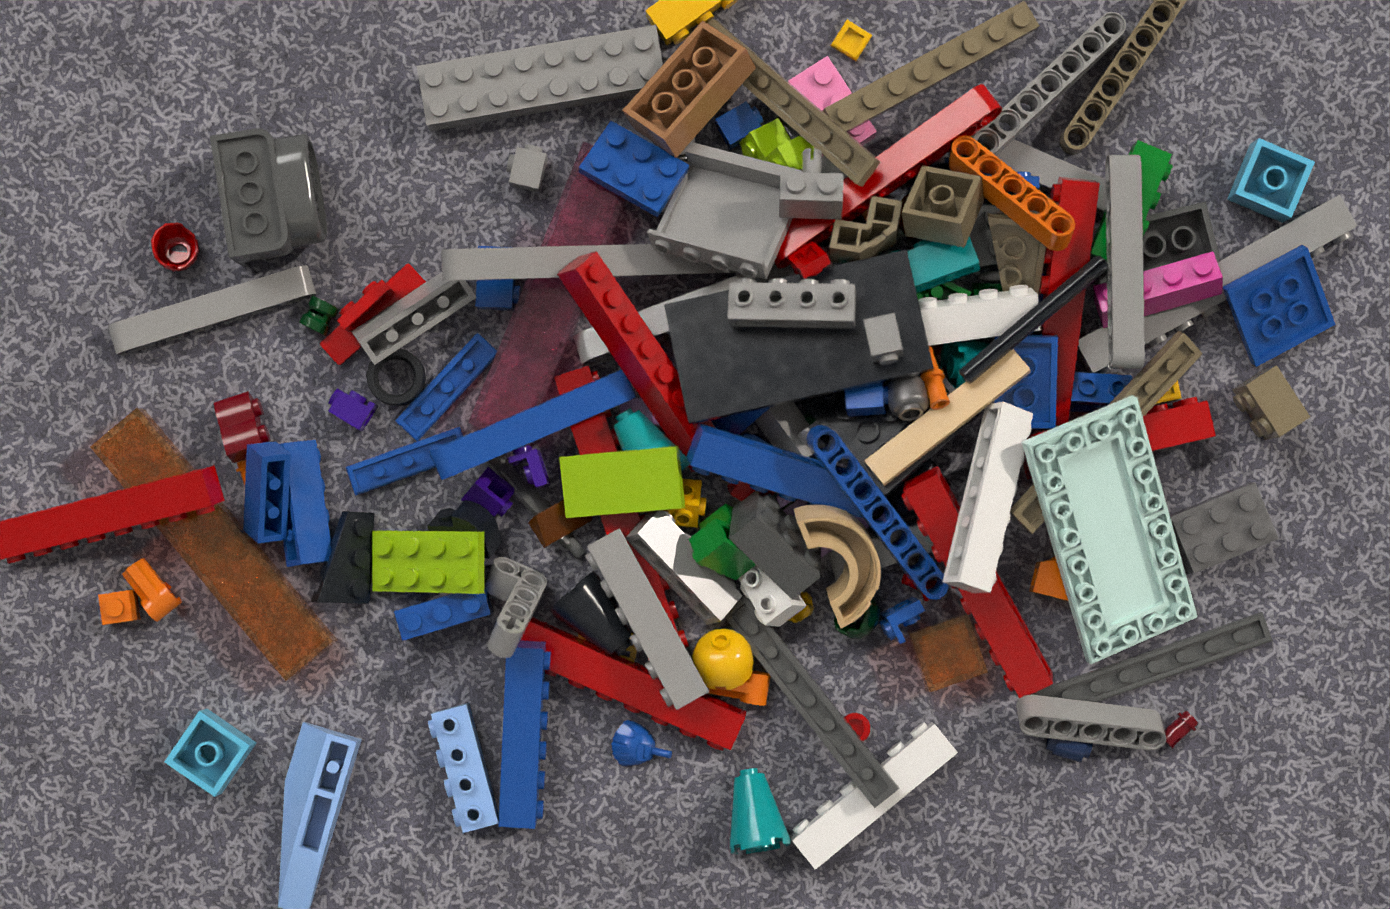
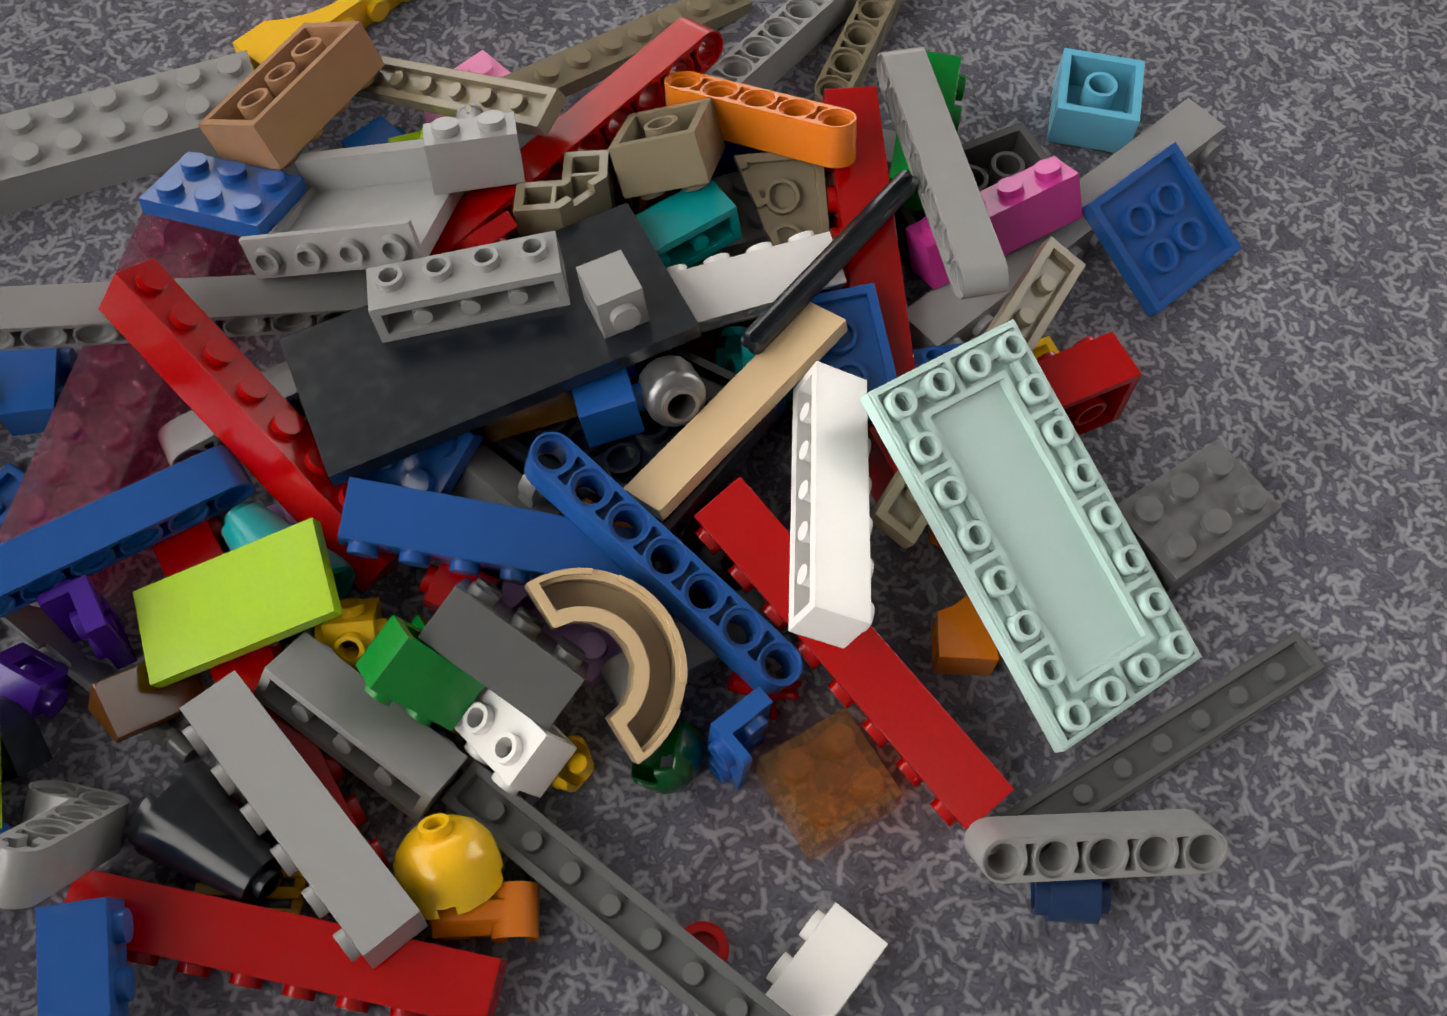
camera: 15 degrees left, 25 degrees down
(527, 168) = (80, 245): light grey brick -> none
(851, 40) = (516, 50): yellow tile -> none
(935, 386) = (709, 366): orange pin -> none
(1180, 728) = (1240, 830): dark red pin -> none
(1270, 403) = (1198, 339): dark tan brick -> none

